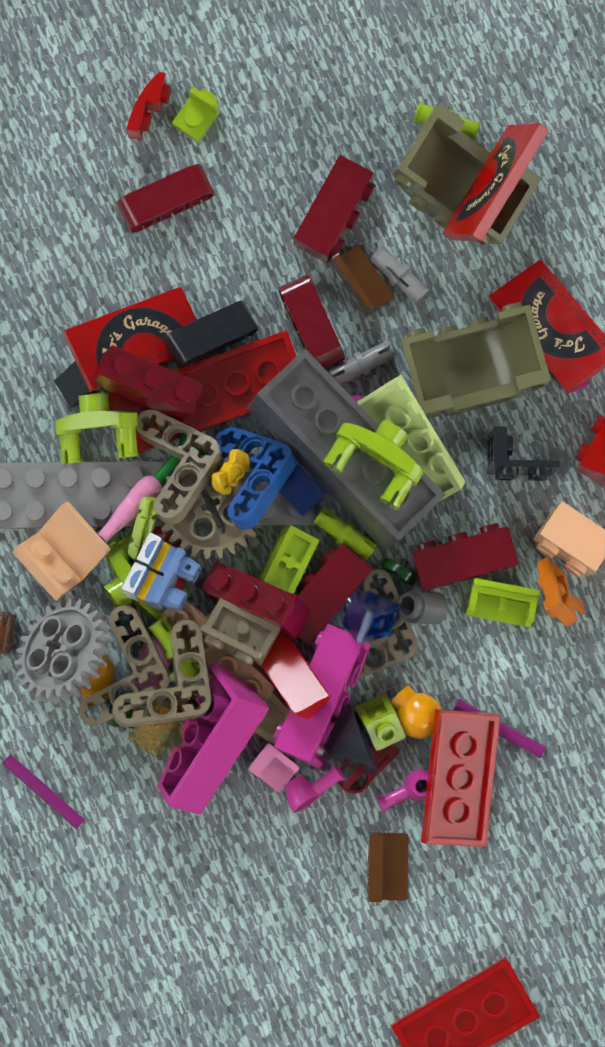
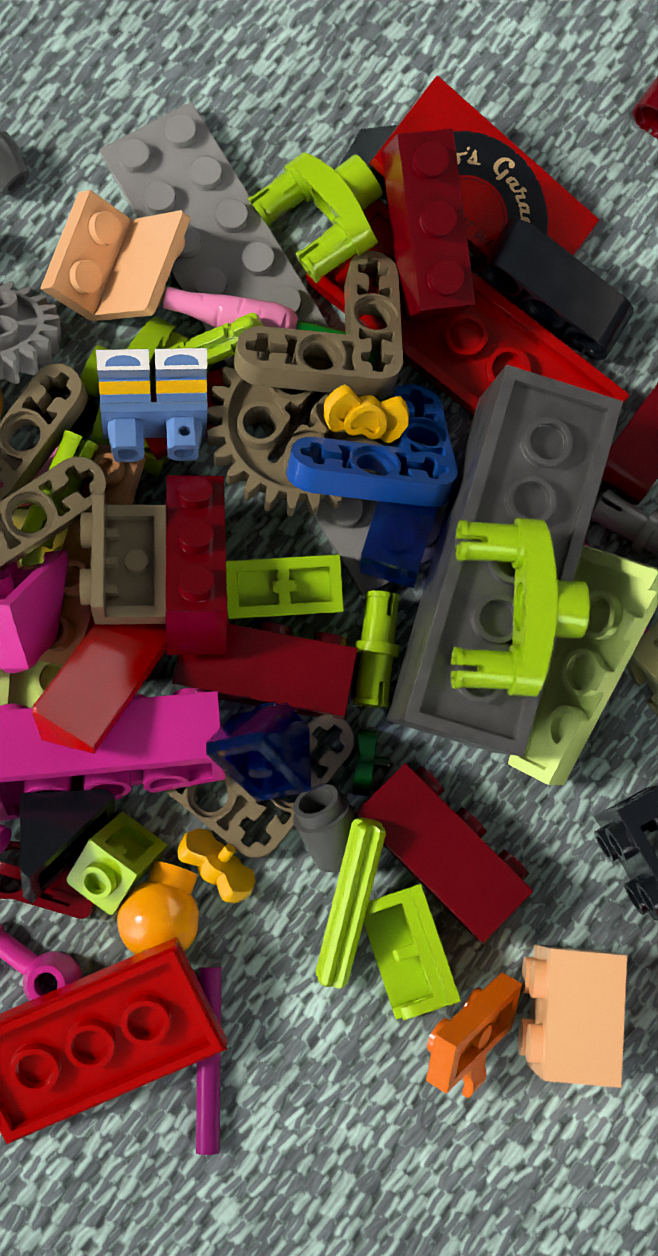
camera: 65 degrees right, 5 degrees down
(408, 672) = (217, 864): none -> yellow piece
(464, 617) = (350, 902): none -> lime axle

